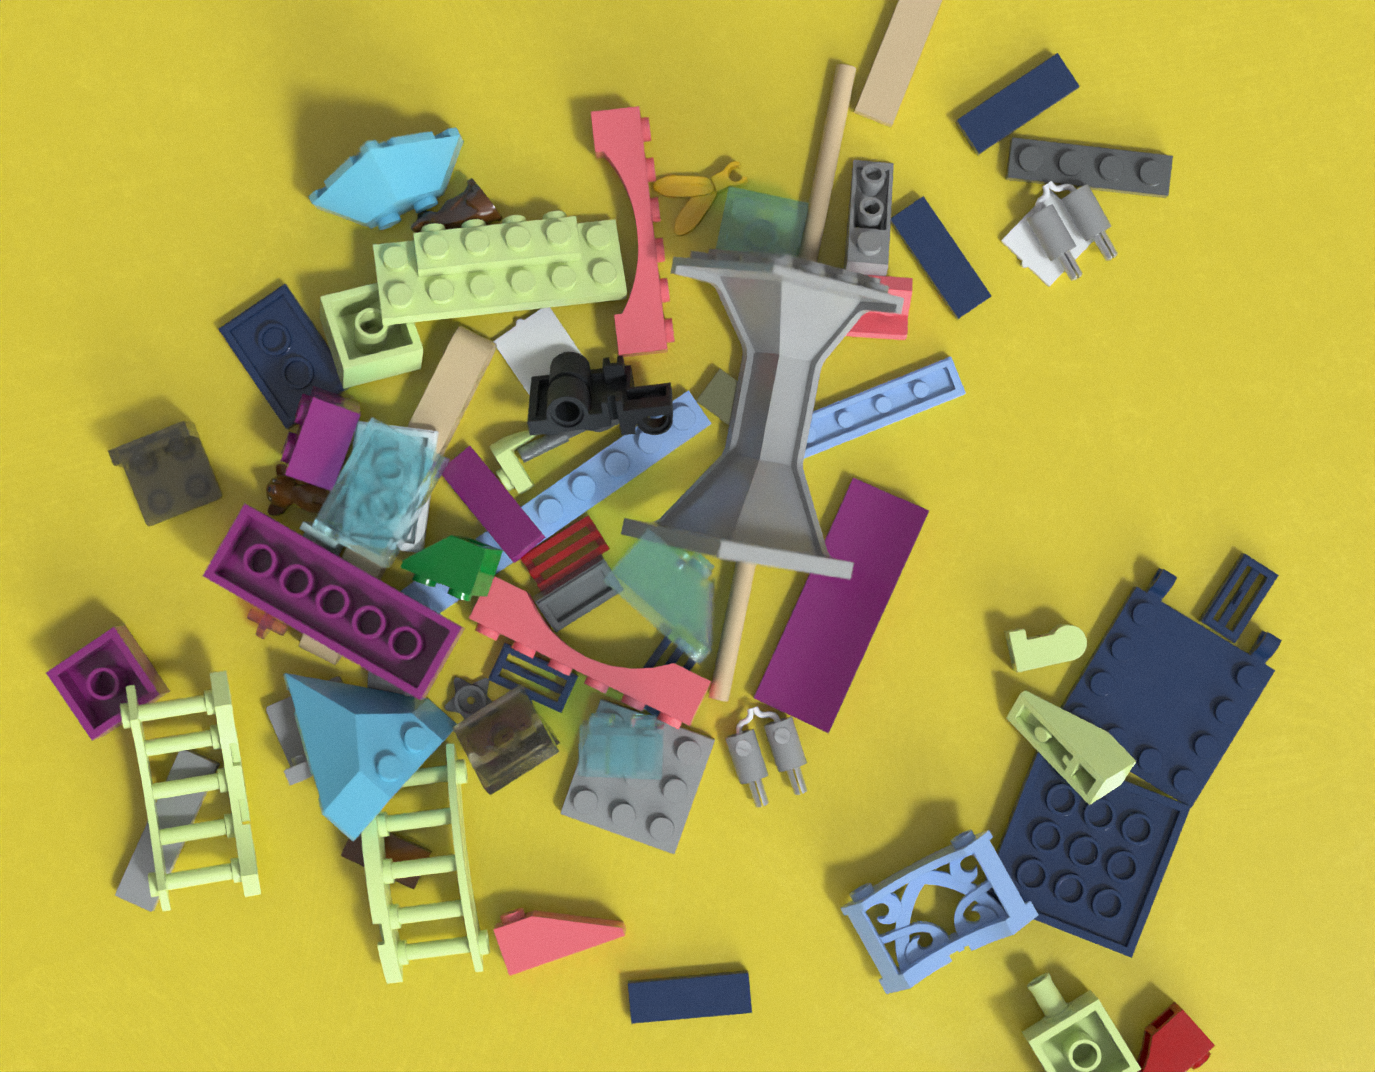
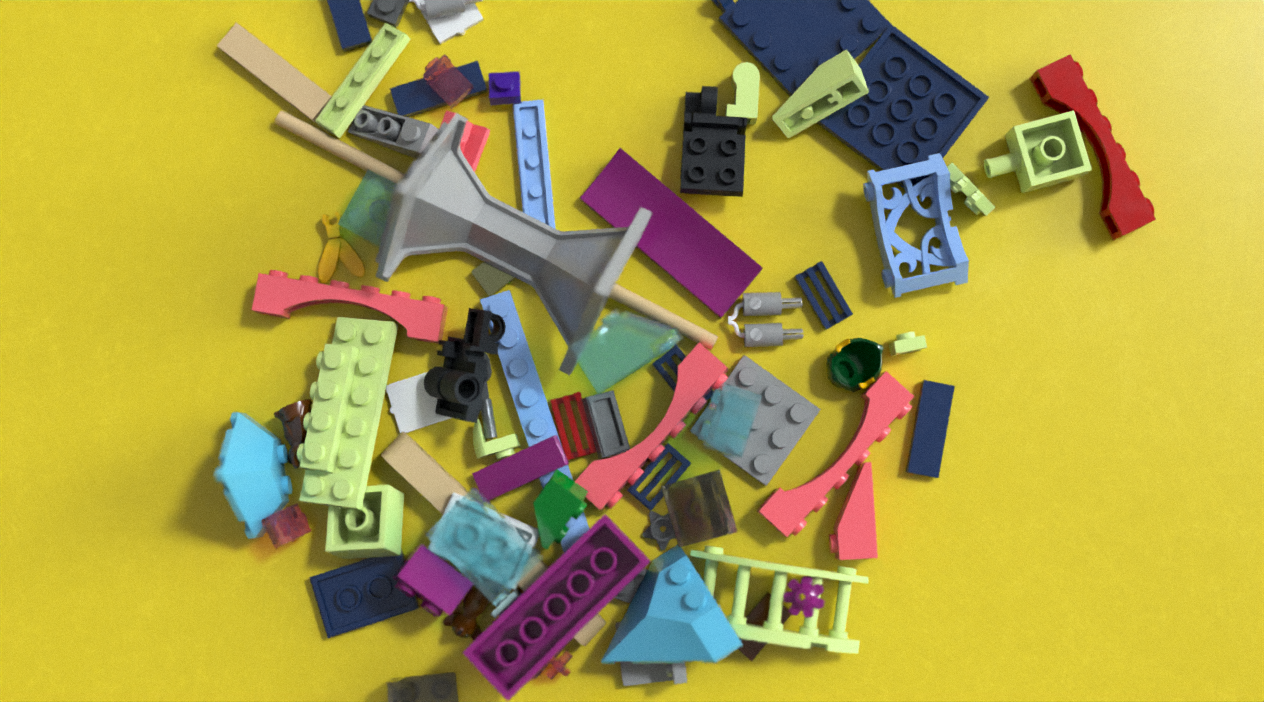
camera: 80 degrees left, 5 degrees down
(338, 238) = (286, 525): none -> clear pink bracket
(437, 907) = (811, 596): none -> magenta plant
(703, 930) = (882, 404): none -> coral arch
(741, 881) = (855, 364): none -> dark green hair
(787, 939) = (907, 343): none -> yellowish green plate
(832, 826) = (810, 272): none -> dark blue tile
(924, 158) = (362, 80): none -> yellowish green tile
(952, 267) = (447, 81): none -> clear pink bracket
(963, 625) = (711, 147): none -> black plate
(966, 341) = (504, 88): none -> dark purple plate
(1010, 951) = (975, 199): none -> yellowish green hinge

